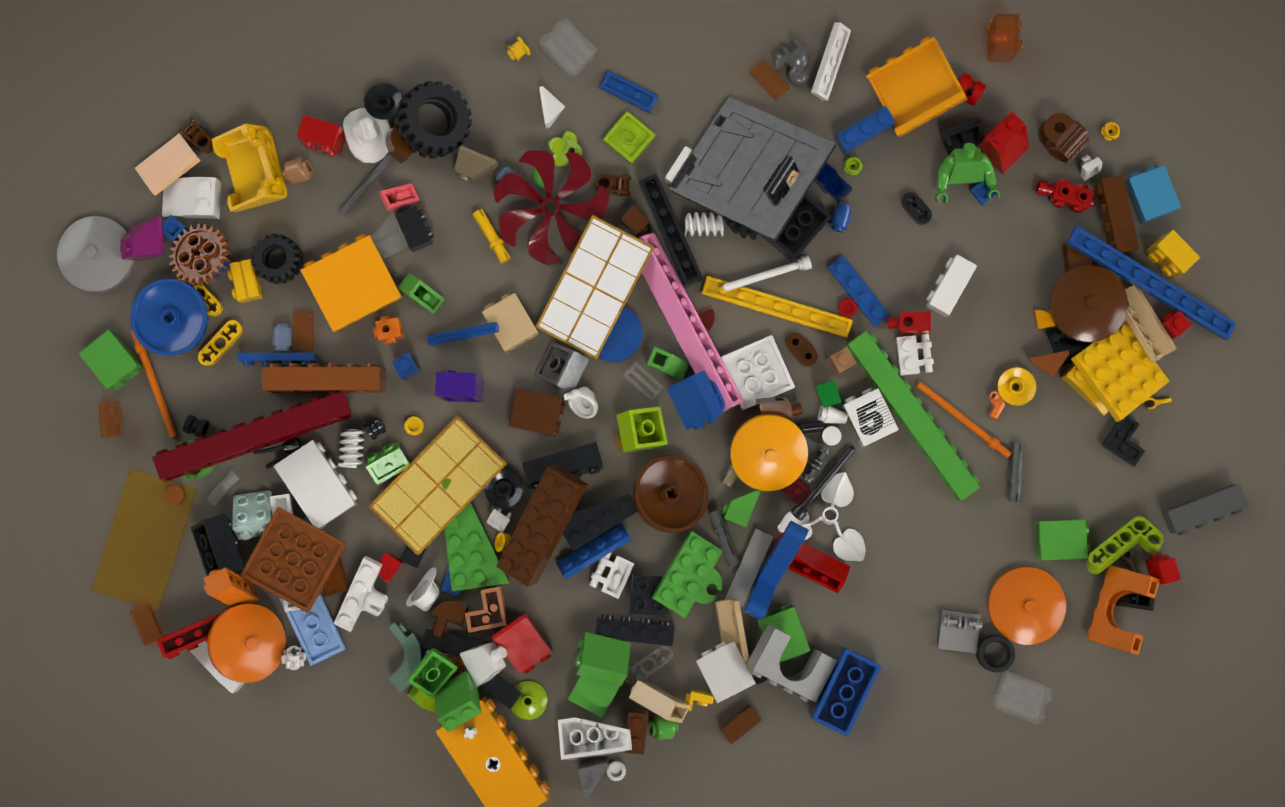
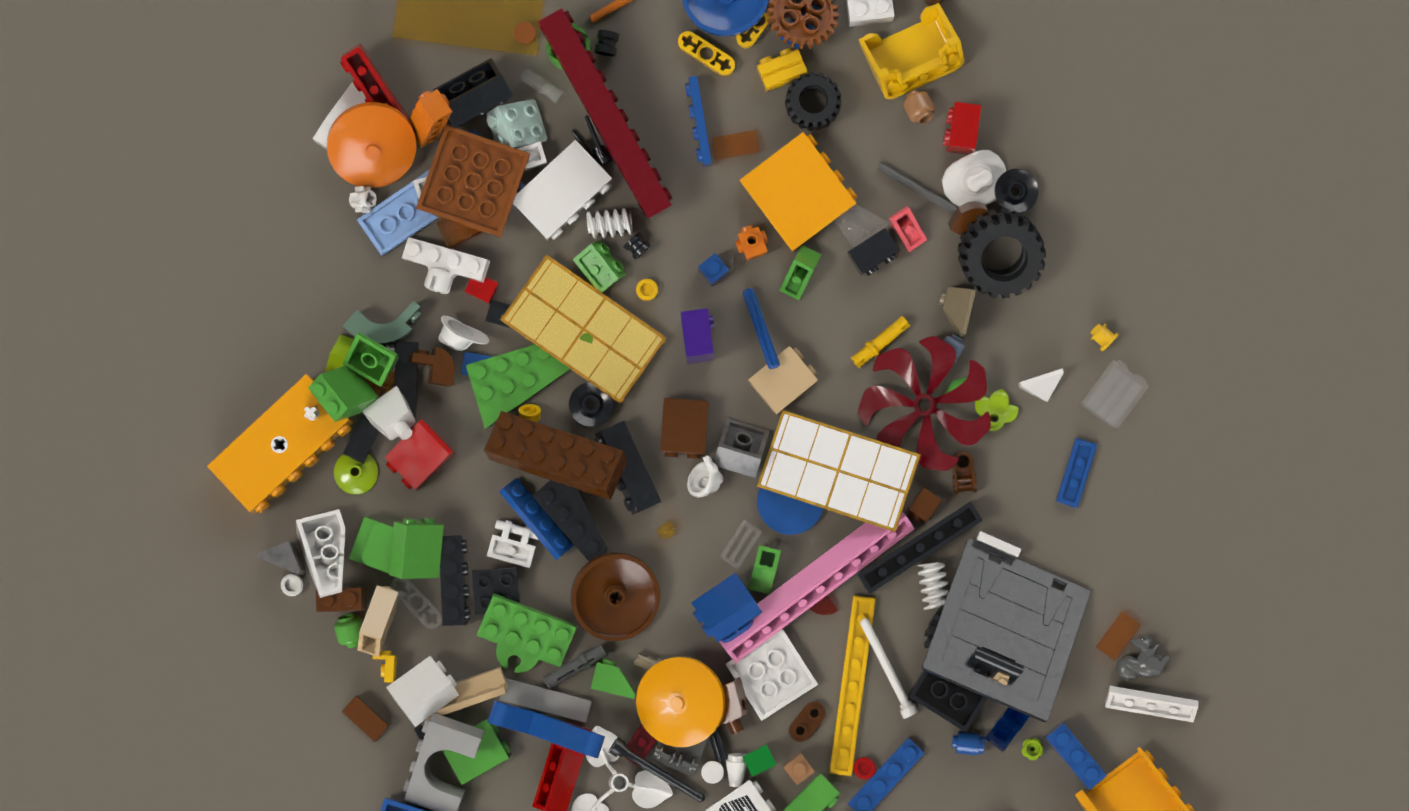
camera: 80 degrees right, 0 degrees up
(146, 623) = (375, 27): clear orange tile -> none
(282, 337) = (723, 122): sand blue brick -> none
(324, 379) = (682, 179): dark orange brick -> none
(492, 615) = (448, 416): nougat brick -> none
(498, 520) = (554, 404): white tile -> none
(629, 137) = (1022, 482): lime tile -> none
(642, 429) = (684, 551): lime brick -> none

